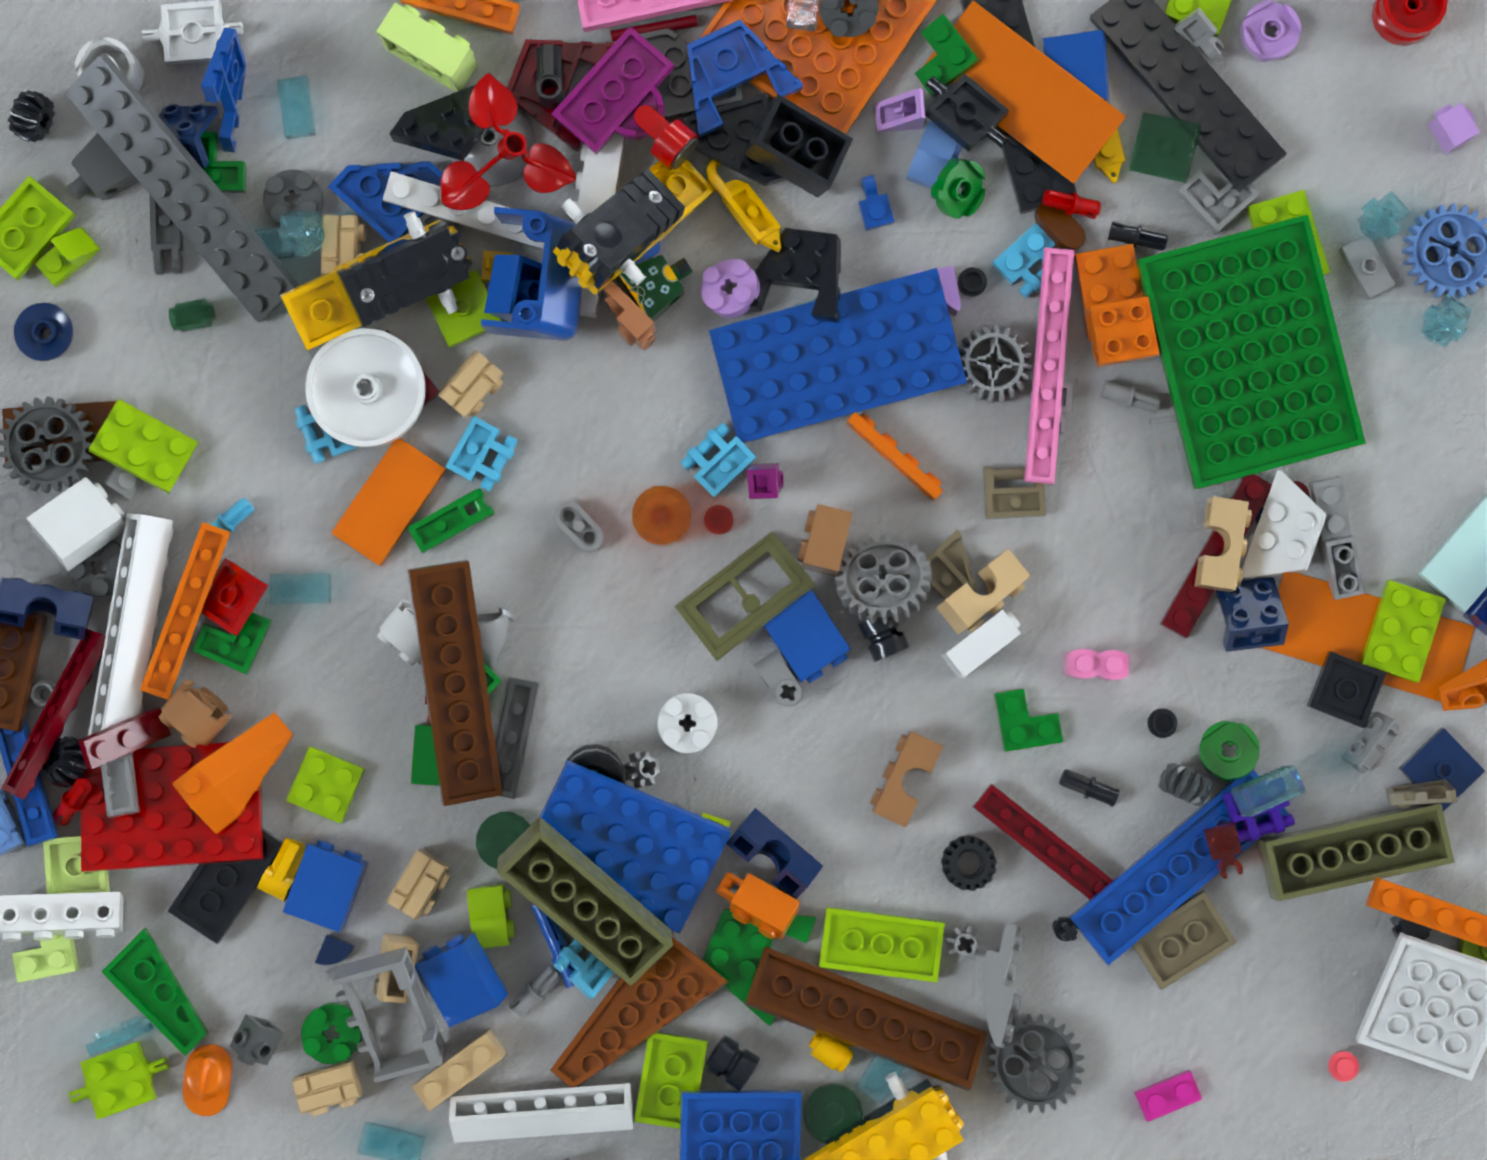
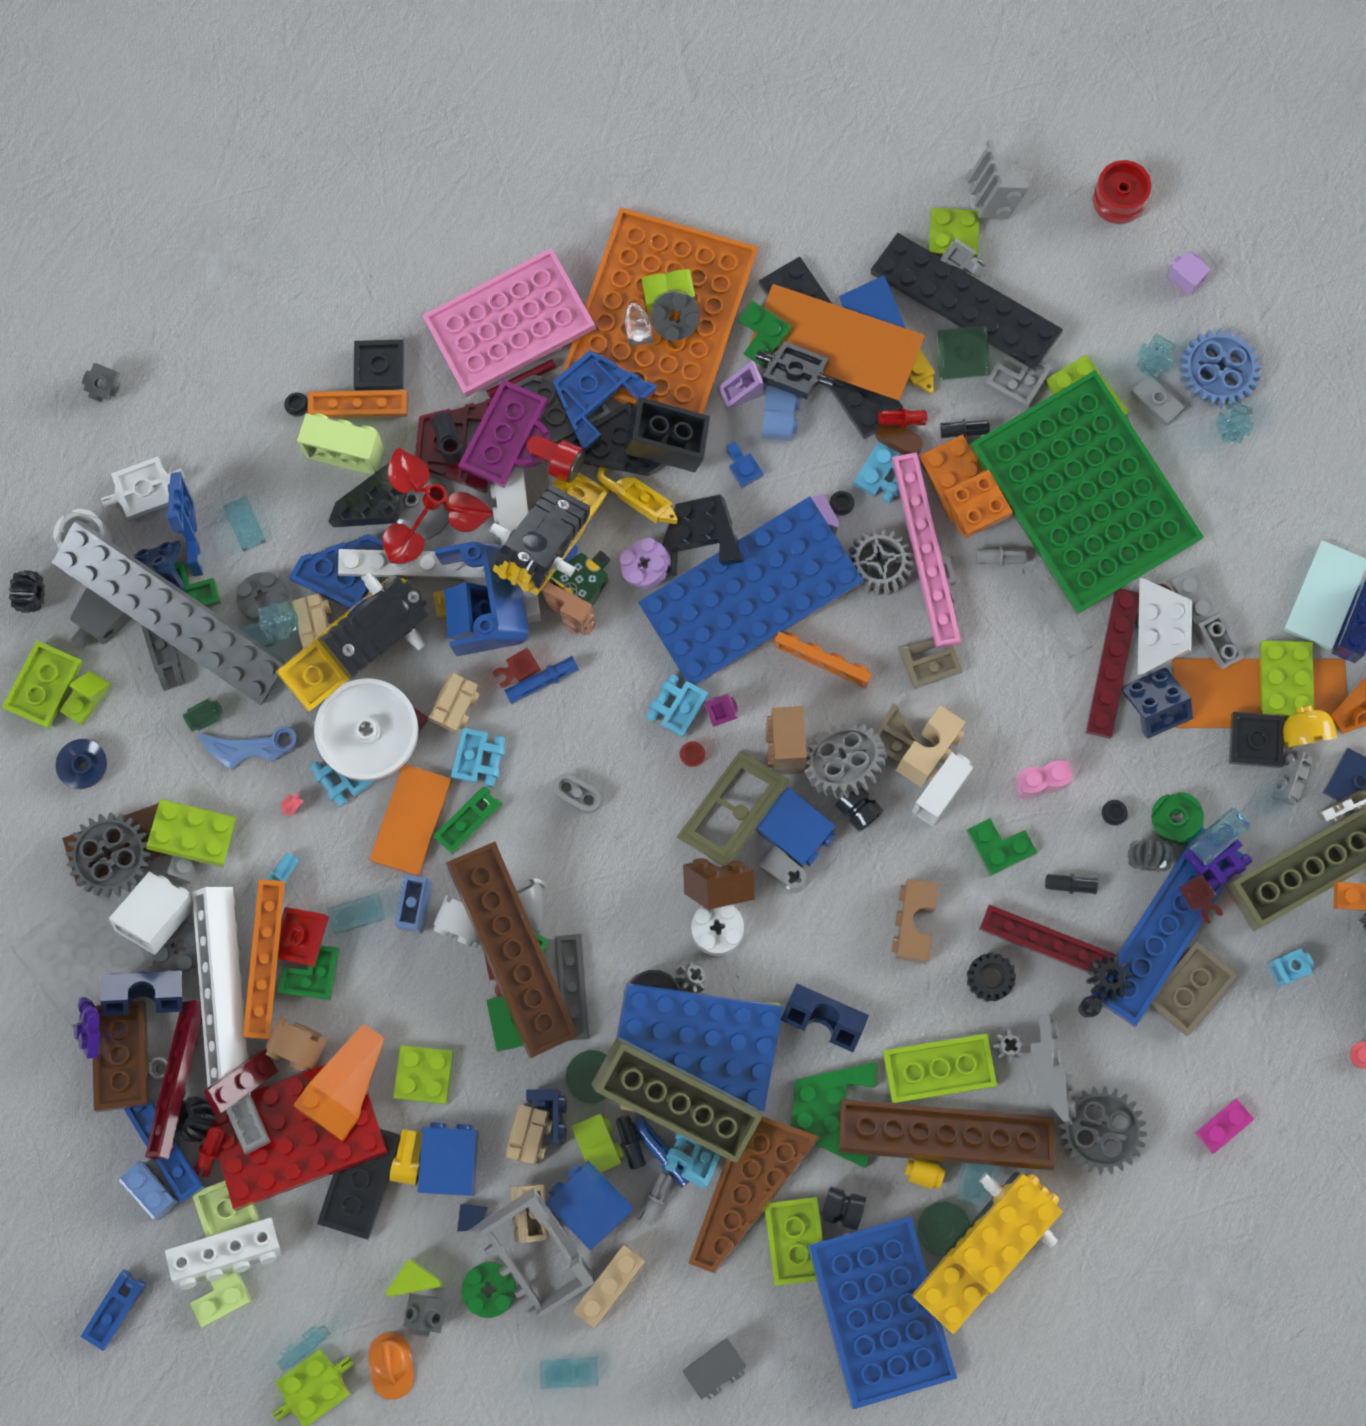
camera: 15 degrees left, 10 degrees down
(154, 990) = (323, 1297): green wing -> none
(218, 366) = (233, 751): none -> medium blue piece
(255, 1000) = (412, 1279): none -> lime slope
(261, 445) = (291, 804): none -> coral plate
(328, 1087) = (498, 1337): tan brick -> none
(364, 598) = (413, 904): none -> medium blue brick
(445, 851) = (542, 1099): none -> dark blue bracket
(466, 321) = (435, 652): lime plate -> none
(525, 926) = (630, 1142): none -> black axle
(541, 1113) = (692, 1302): white brick -> none
(558, 365) = (520, 665): none -> clear red plate
(576, 386) = (542, 679): none -> blue pin
(656, 500) = (637, 751): clear orange brick -> none
(702, 679) = (717, 885): none -> reddish brown brick
(759, 904) = (825, 1063): orange brick -> none
(947, 184) = (798, 434): green plate -> none
(1085, 903) = (1100, 972): none -> black gear
(1229, 519) = (1114, 628): tan arch -> none
(1268, 47) = (1018, 254): lavender plate -> none
(1289, 944) = (1283, 970): none -> medium azure brick
(1407, 696) = (1308, 727): none -> yellow cylinder

